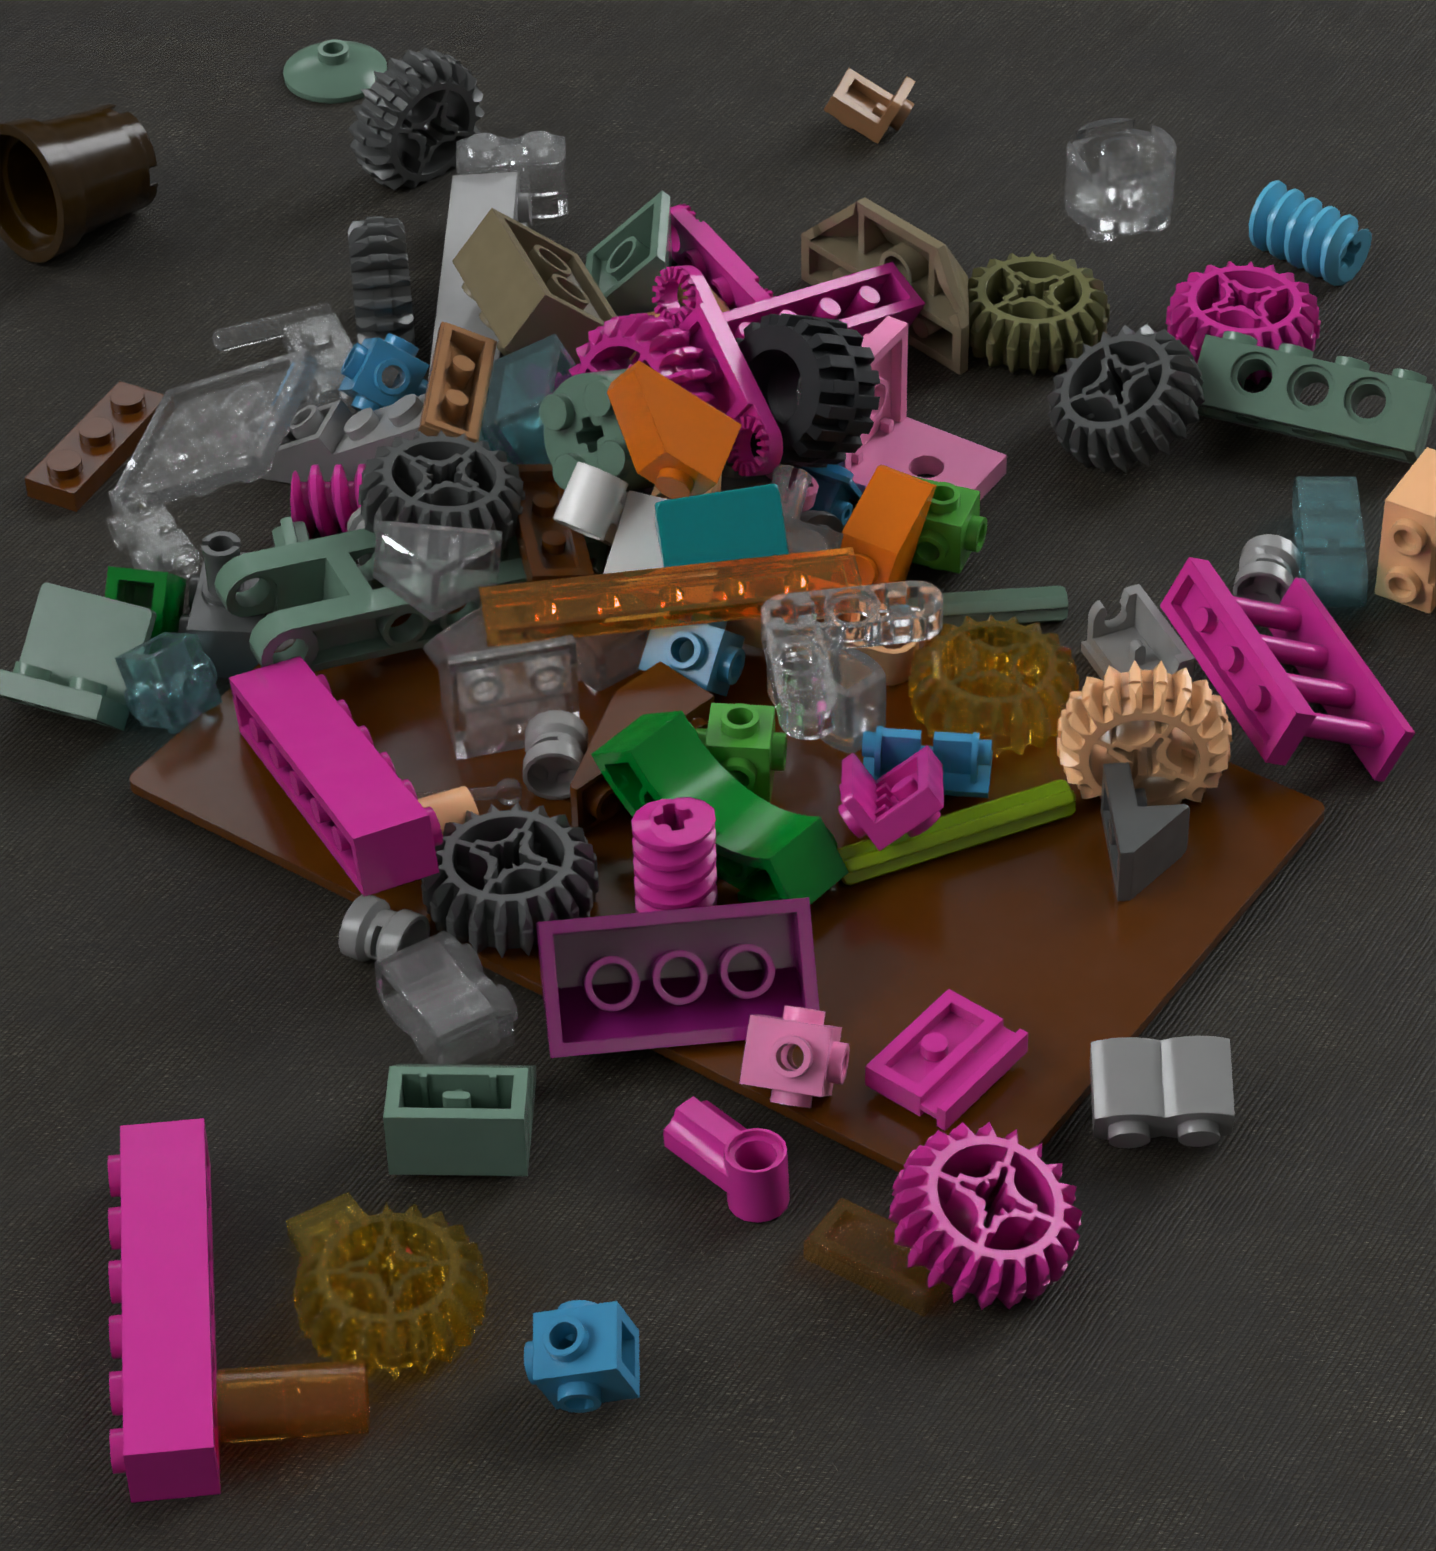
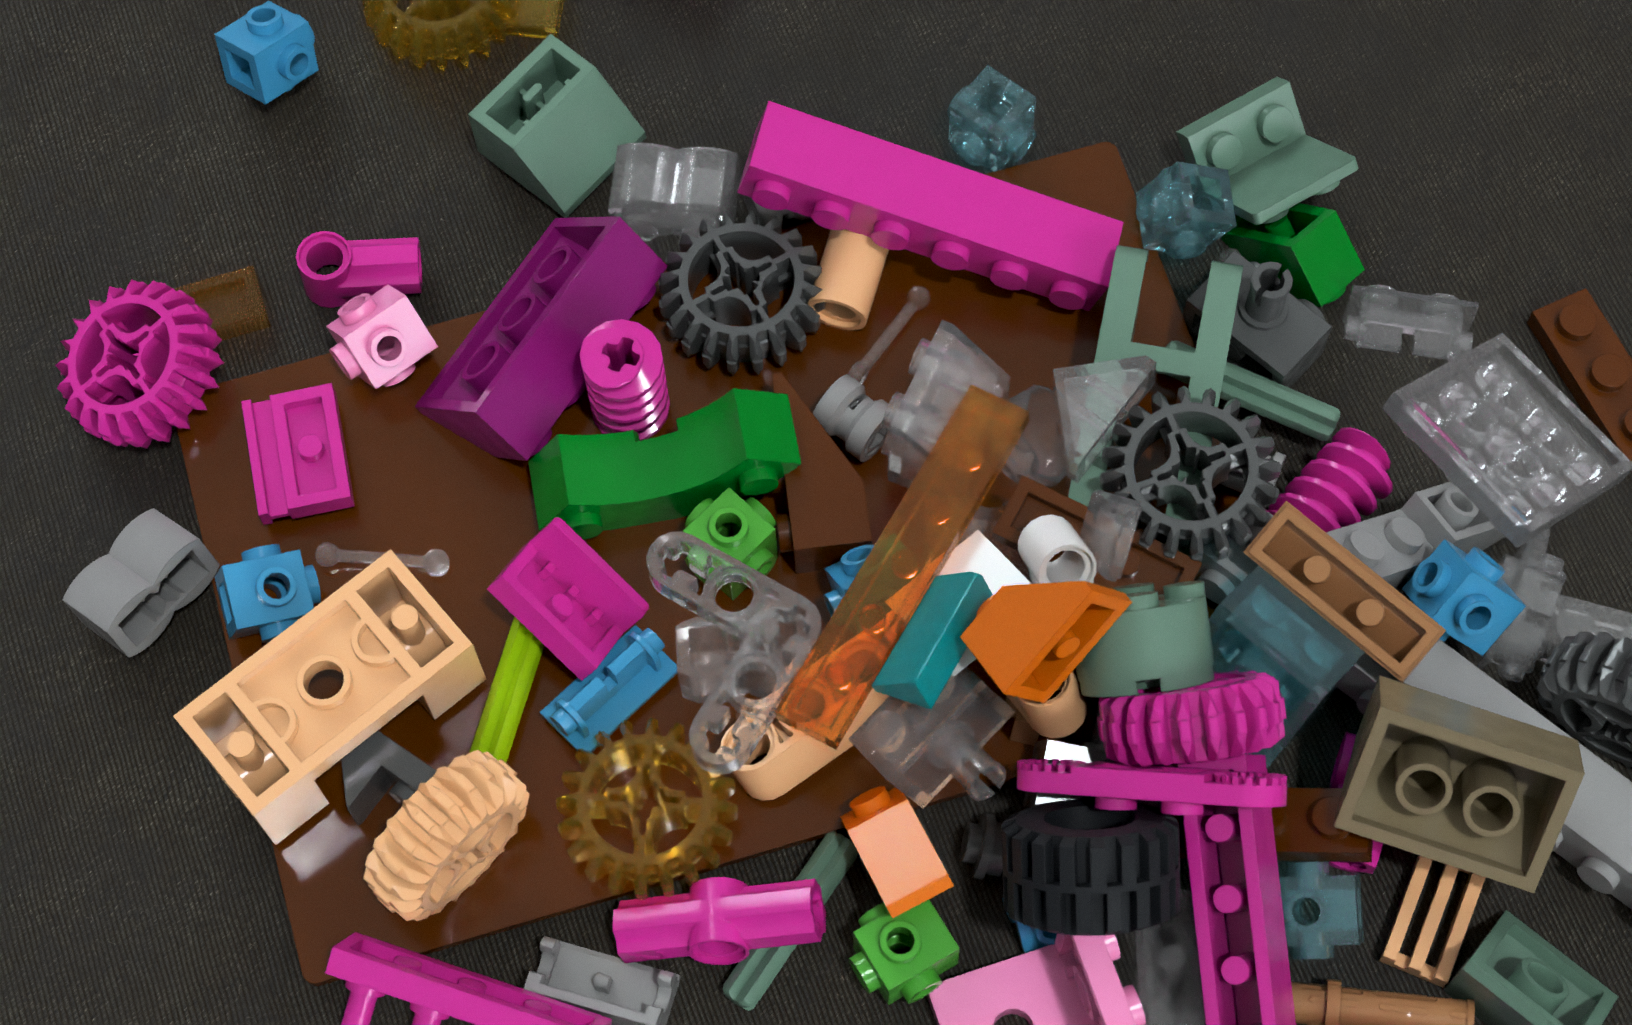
camera: 130 degrees right, 25 degrees up
(180, 846) = (991, 121): none -> clear light blue brick
(540, 478) = (1110, 531): none -> clear slope
(938, 936) = (434, 561): none -> clear hinge
(1008, 590) = (719, 921): none -> dark pink piece
(1087, 973) = (246, 604): none -> dark azure brick
(1185, 848) = (277, 739): none -> light nougat plate

